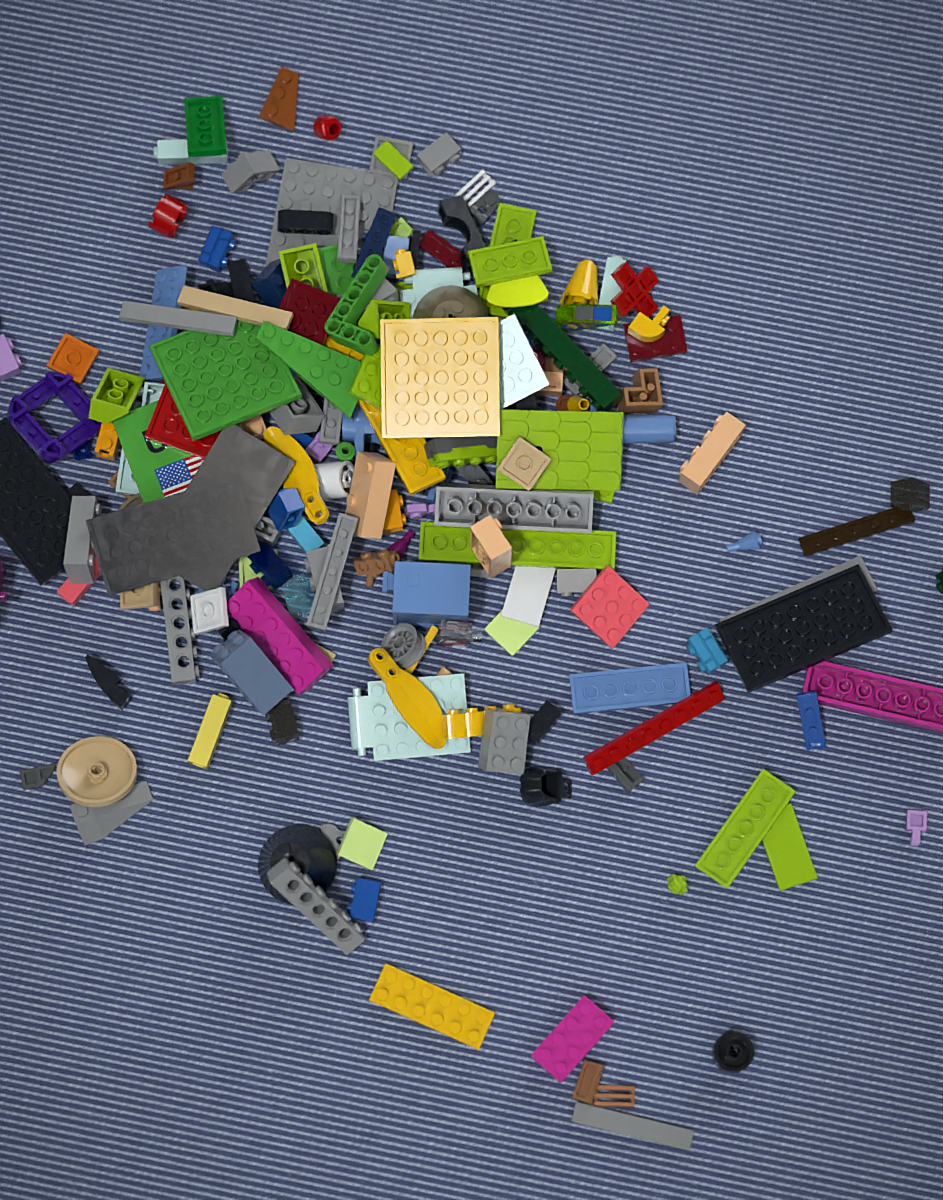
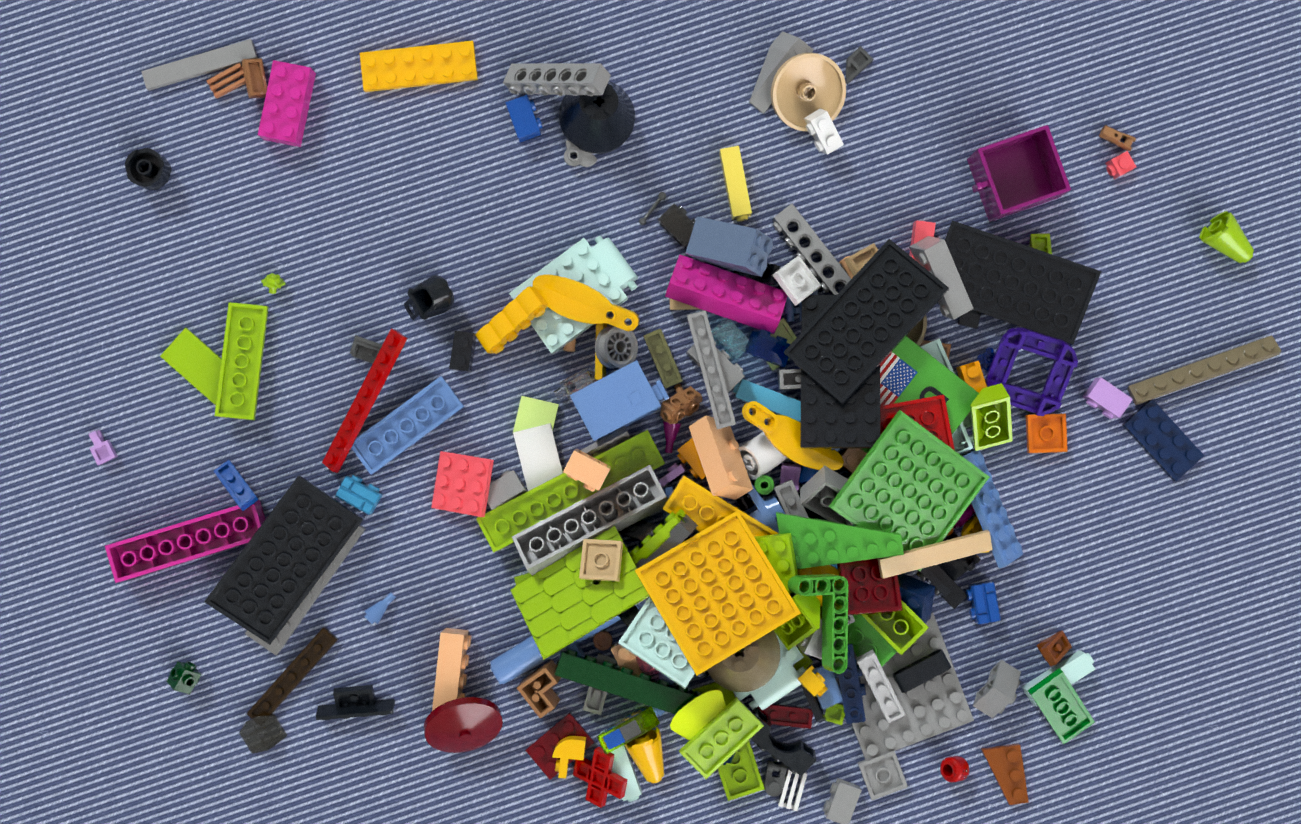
camera: 155 degrees right, 10 degrees up
(105, 729) = (823, 131): none -> white brick
(108, 683) = (846, 173): black slope -> none
(167, 216) = (1044, 606): red brick -> none
(178, 318) = (978, 516): light grey tile -> none
(282, 760) = (662, 196): none -> dark grey hinge
(286, 509) = (784, 402): blue brick -> none
(361, 844) = (553, 163): yellowish green tile -> none
(367, 615) = (662, 358): none -> olive plate
(393, 160) = (879, 772): lime tile -> none
(504, 741) = (481, 312): light grey brick -> none
(577, 403) = (590, 646): yellow cone -> none
(726, 399) = (463, 724): none -> dark red dish
(813, 474) = (355, 702): none -> black bracket

